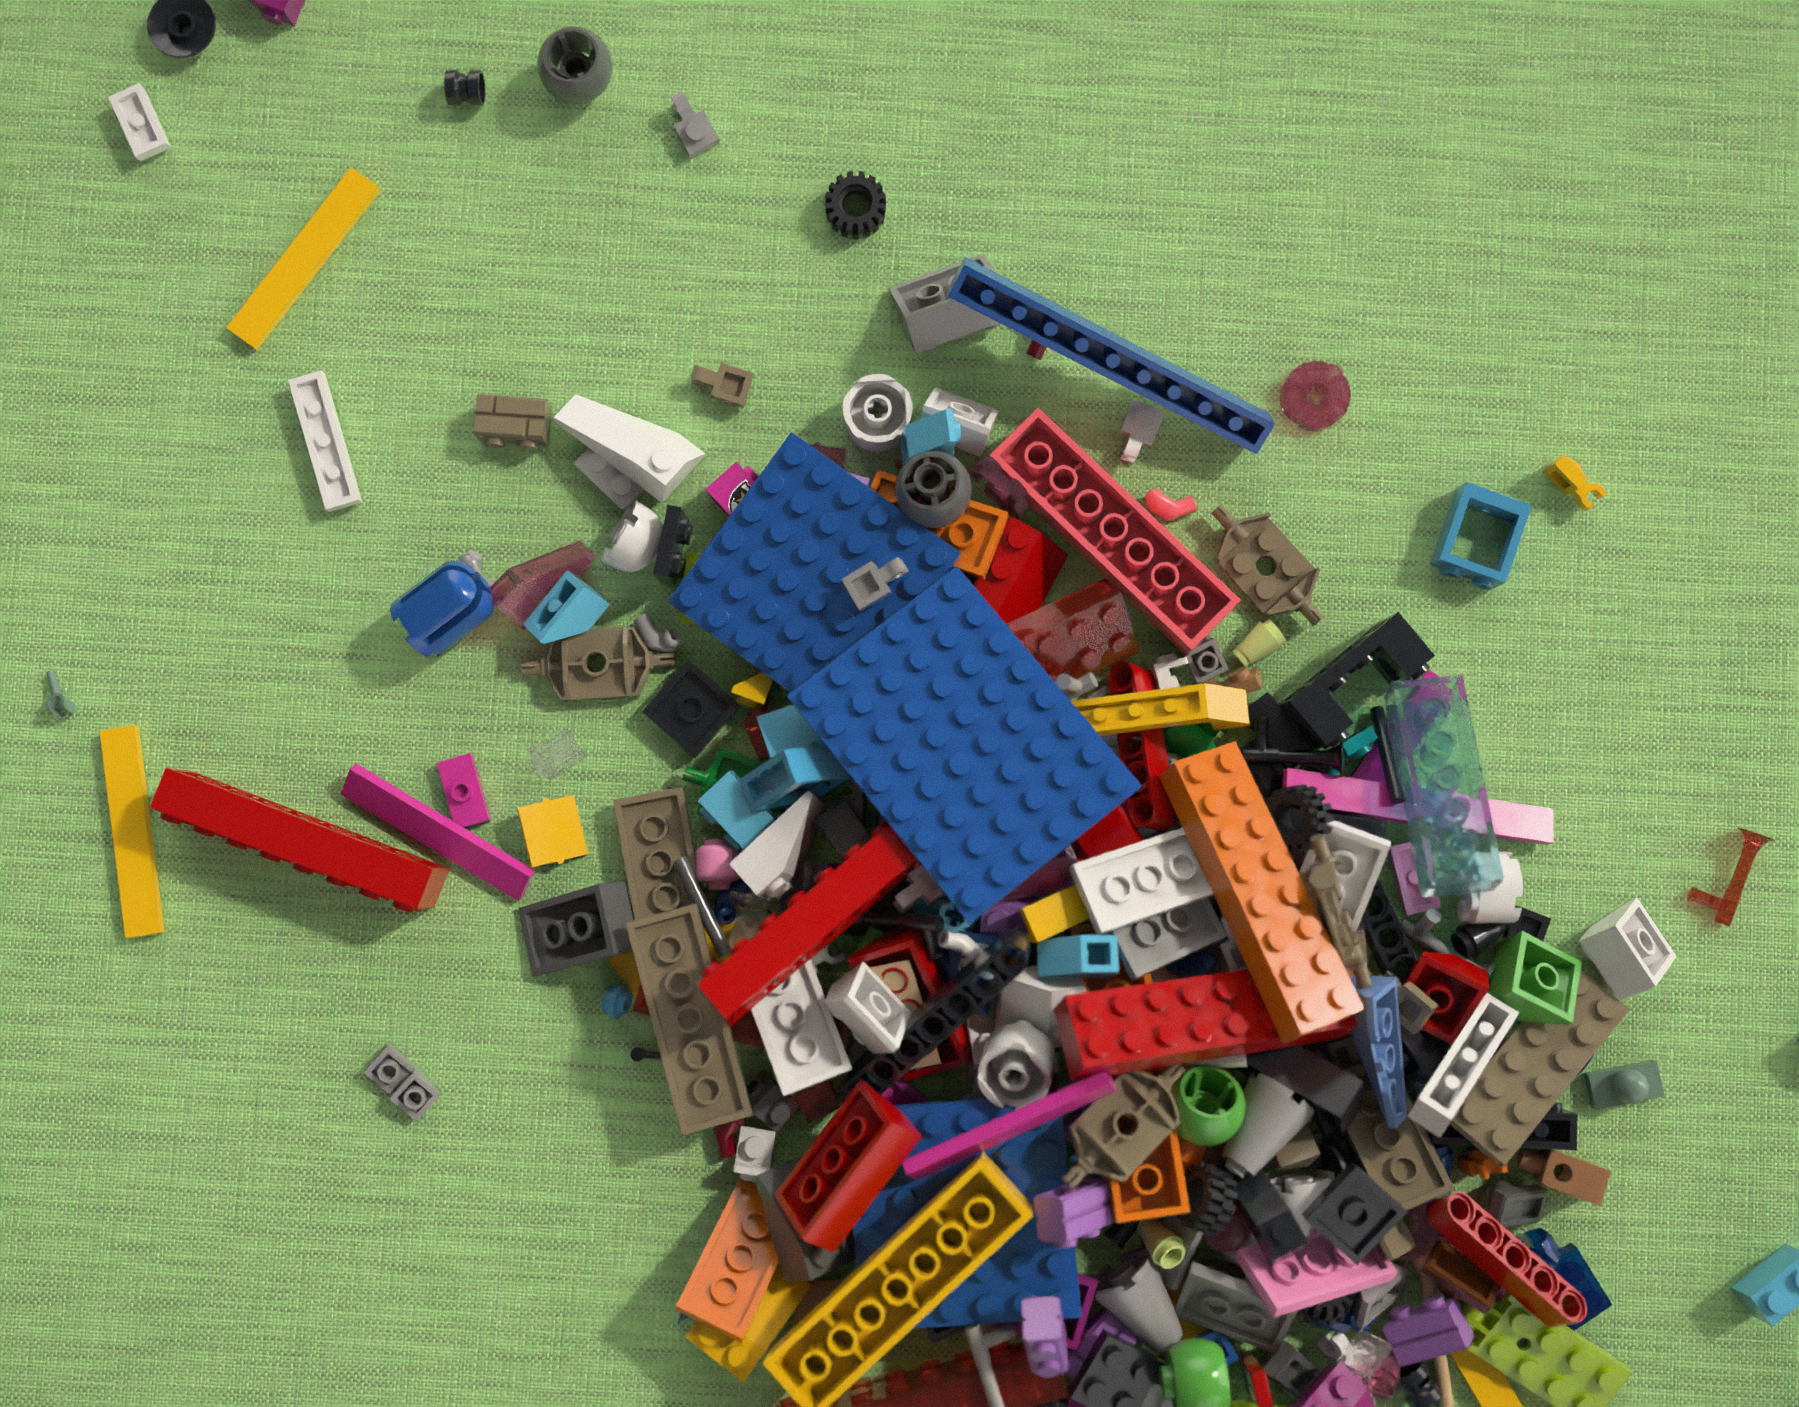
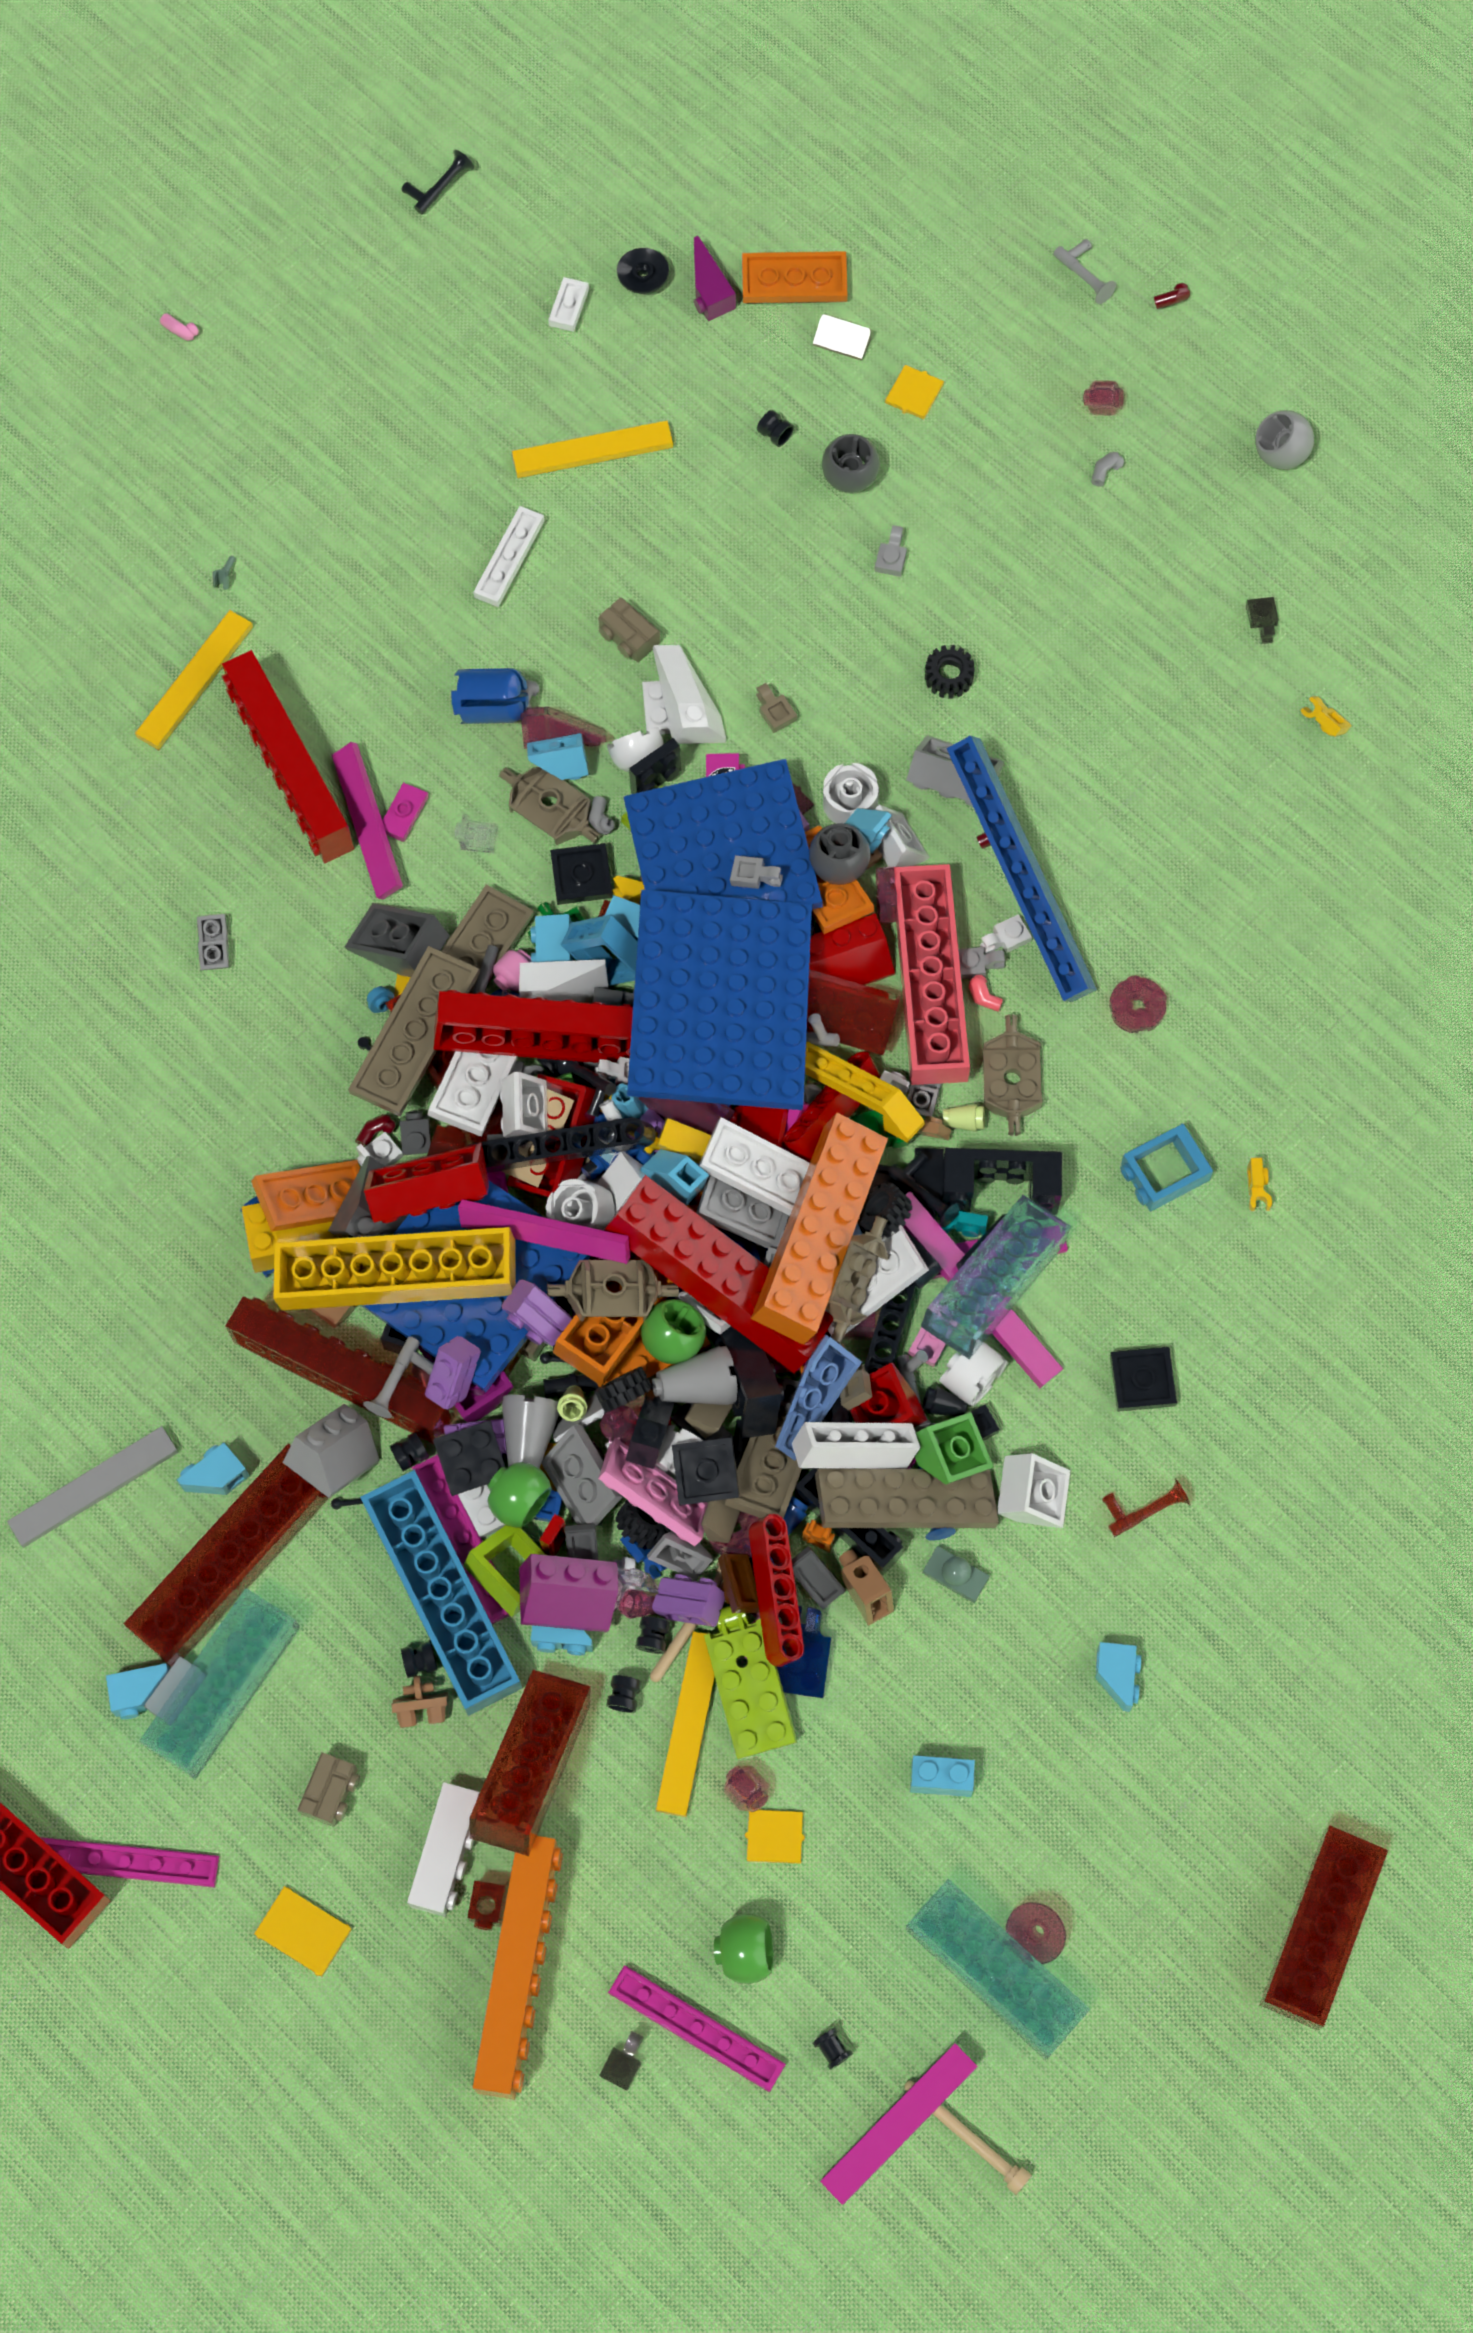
camera: 45 degrees right, 15 degrees down
(552, 831) = (433, 874): yellow piece -> none
(1135, 478) = (974, 961): none -> light grey plate
(1630, 757) = (1143, 1379): none -> black plate

